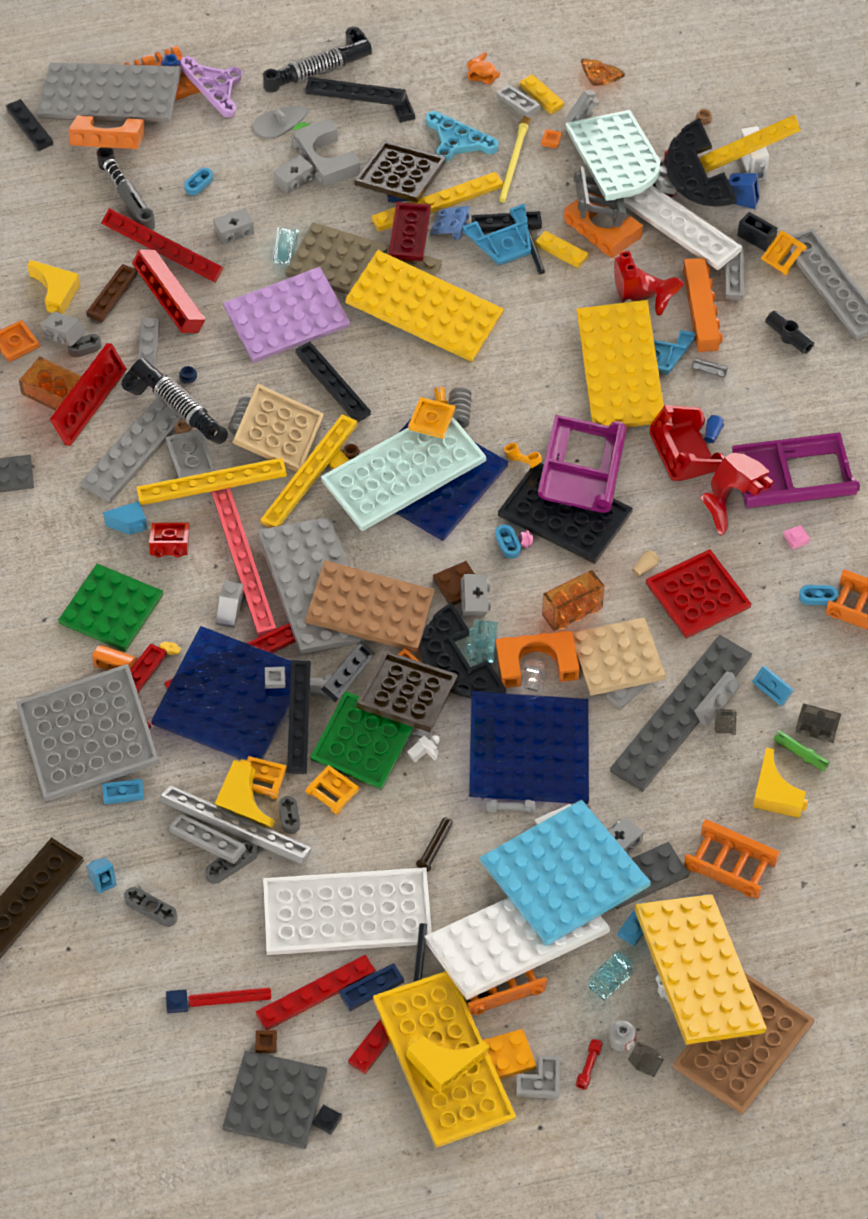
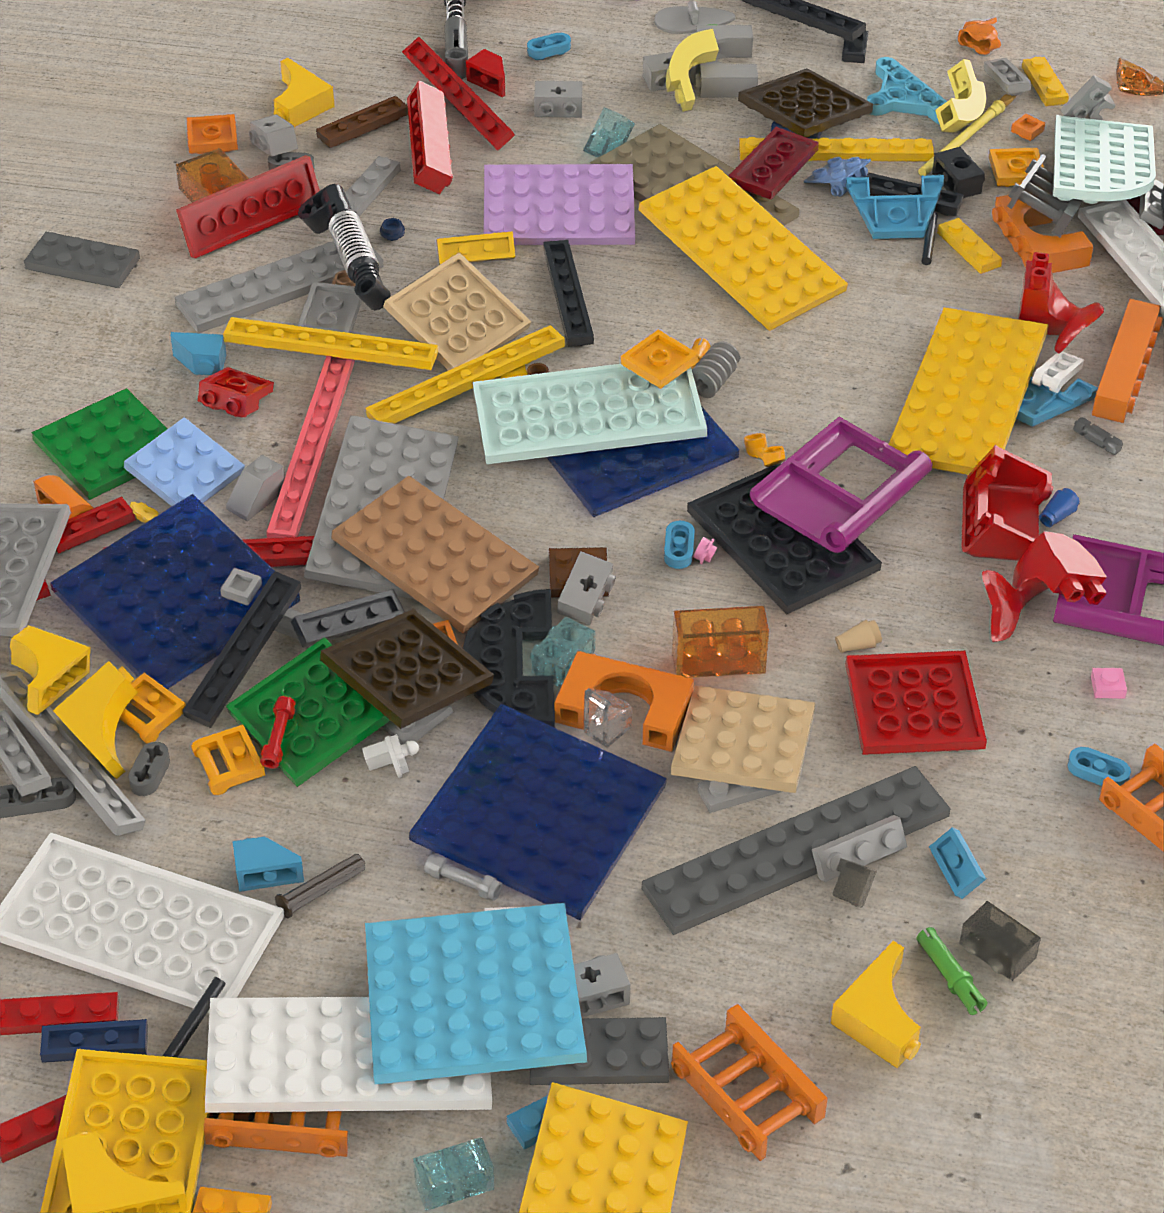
camera: 25 degrees right, 10 degrees down
(172, 220) = (487, 72): none -> red slope
(174, 606) = (184, 464): none -> light blue plate
(186, 771) = (51, 661): none -> yellow arch
(253, 370) = (477, 247): none -> yellow plate
(306, 171) = (693, 50): none -> light yellow arch
(351, 748) = (272, 753): none -> red bar
(397, 845) = (265, 864): none -> dark azure slope
(505, 132) = (968, 101): none -> light yellow arch
(526, 192) = (959, 172): none -> black brick
(559, 174) = (1011, 163): none -> light orange plate
(666, 329) = (1057, 371): none -> white plate

